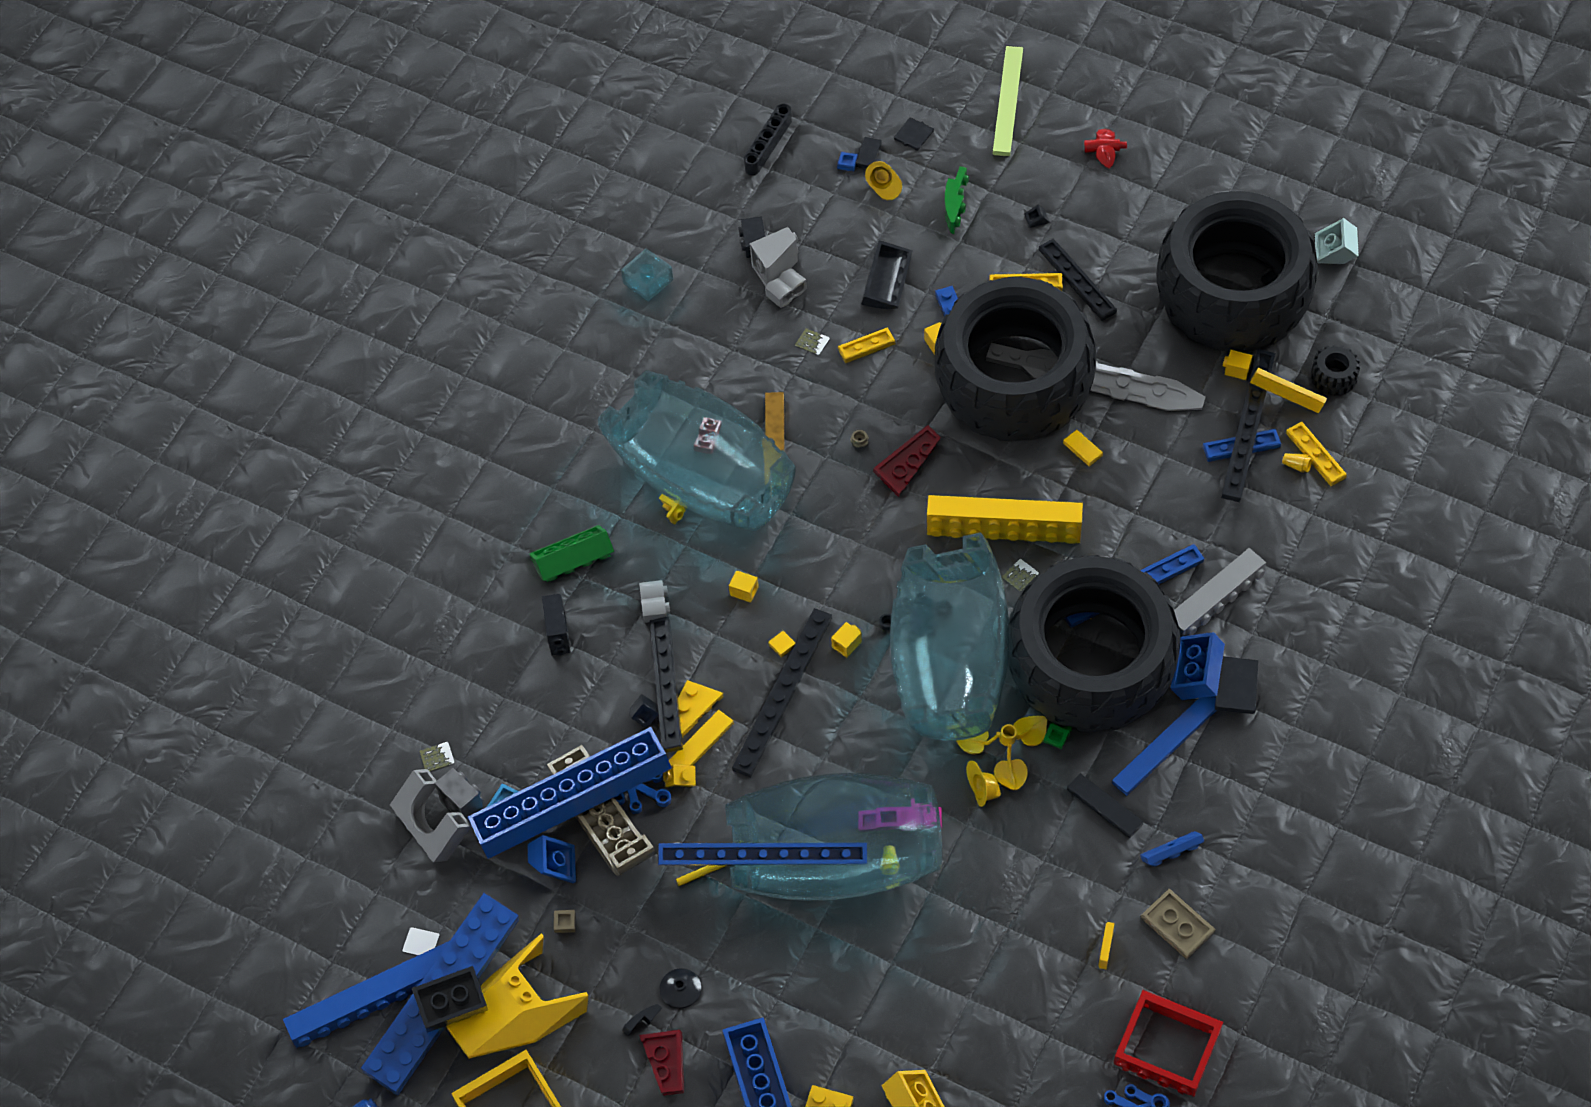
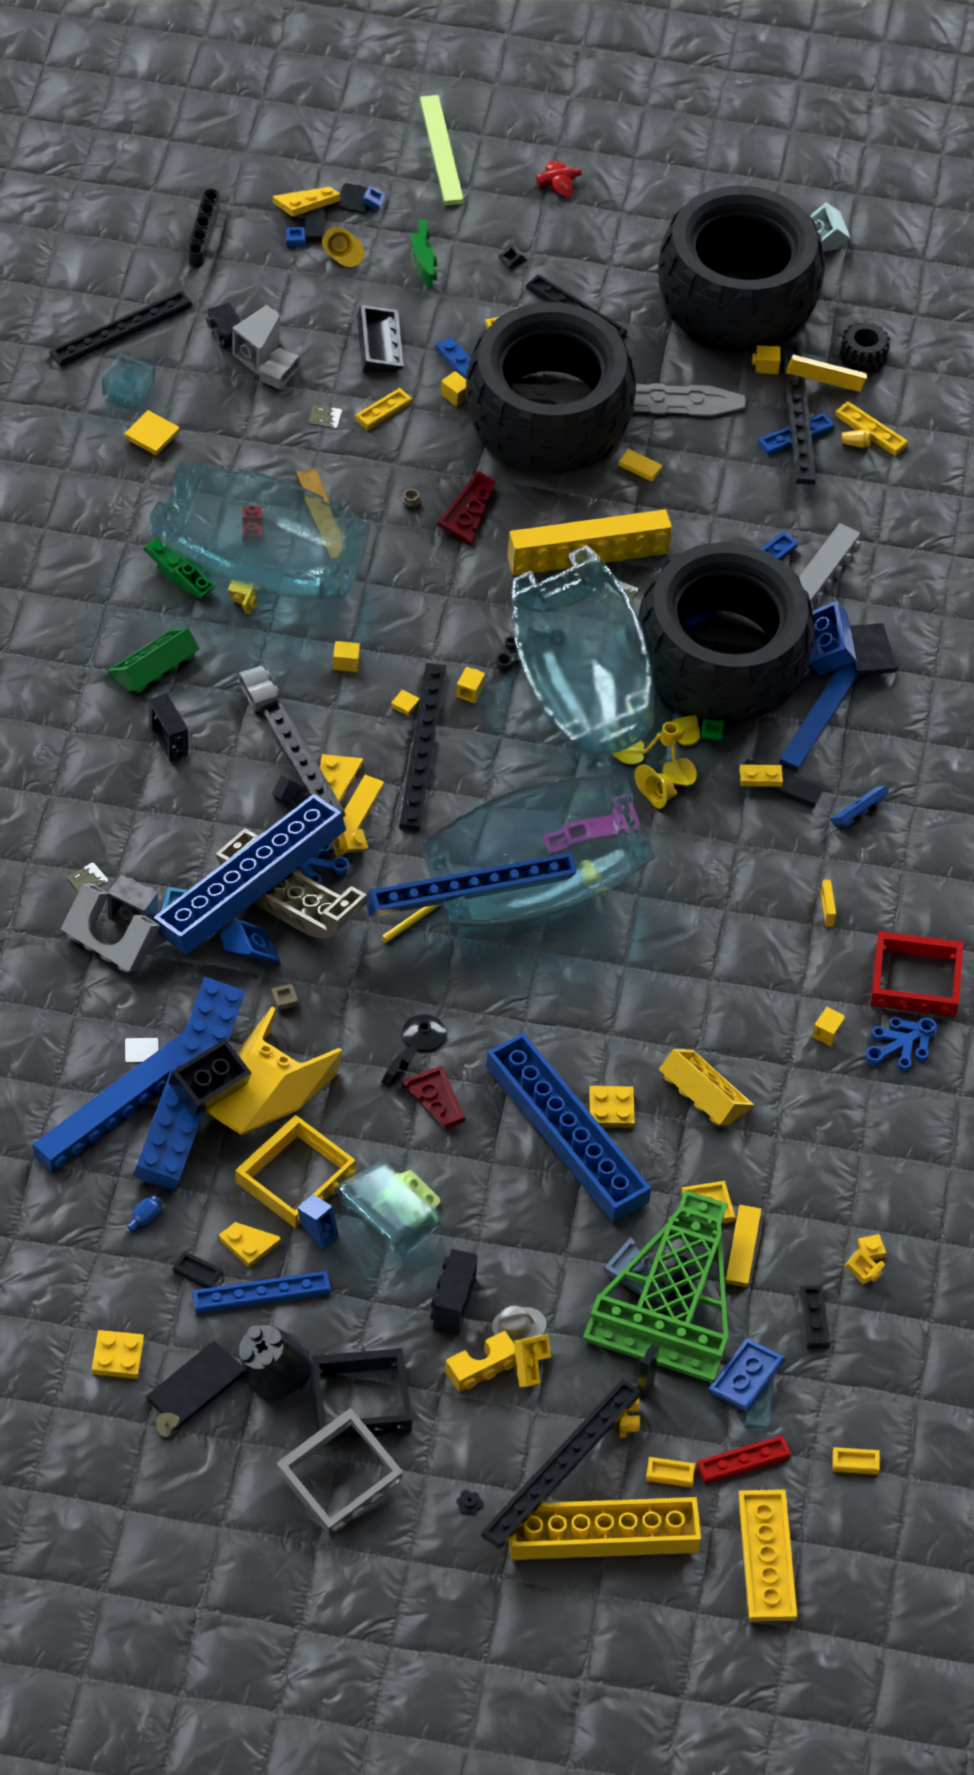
camera: 25 degrees left, 5 degrees down
(632, 482) = (178, 570): none -> green slope
(651, 328) = (151, 432): none -> yellow tile
(662, 222) = (120, 328): none -> black tile
(867, 129) = (305, 201): none -> yellow wing
(929, 137) = (373, 198): none -> blue tile
(1061, 1078) = (827, 1026): none -> yellow panel
(1086, 795) = (761, 775): none -> yellow plate
(1178, 923) = (887, 871): dark tan tile -> none

